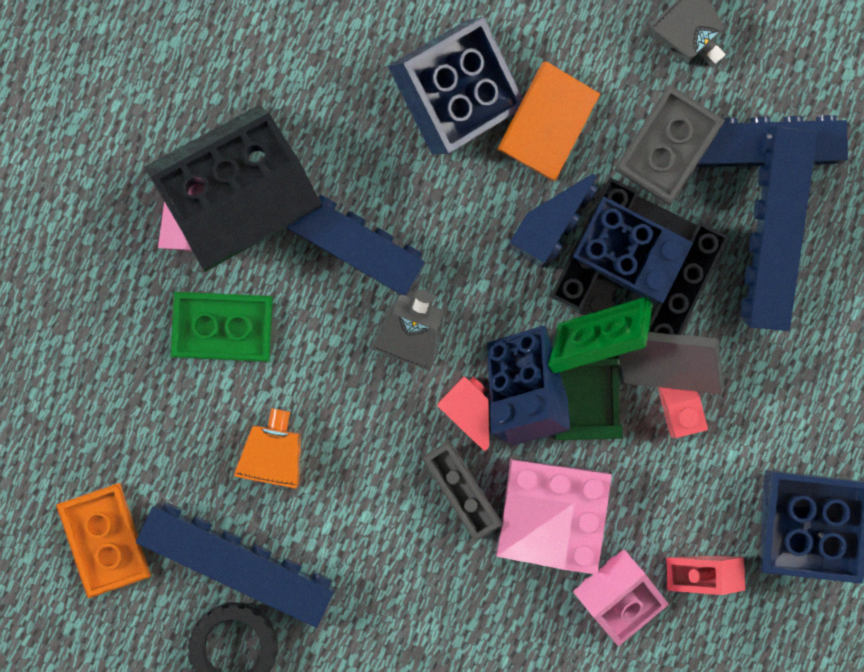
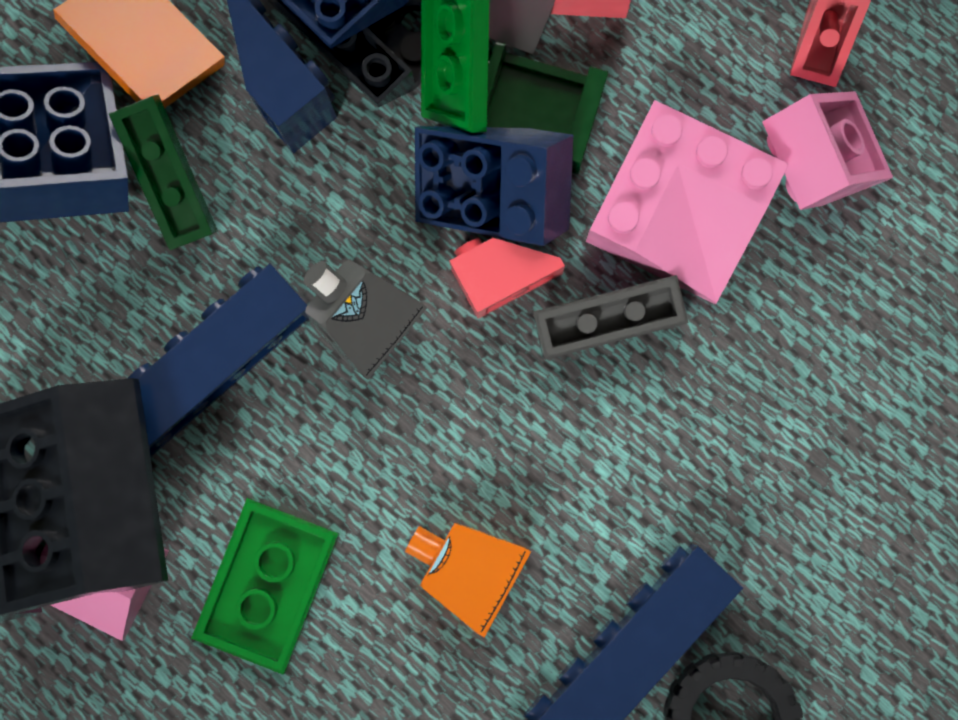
camera: 65 degrees left, 5 degrees down
(462, 171) = (163, 172): none -> dark green plate

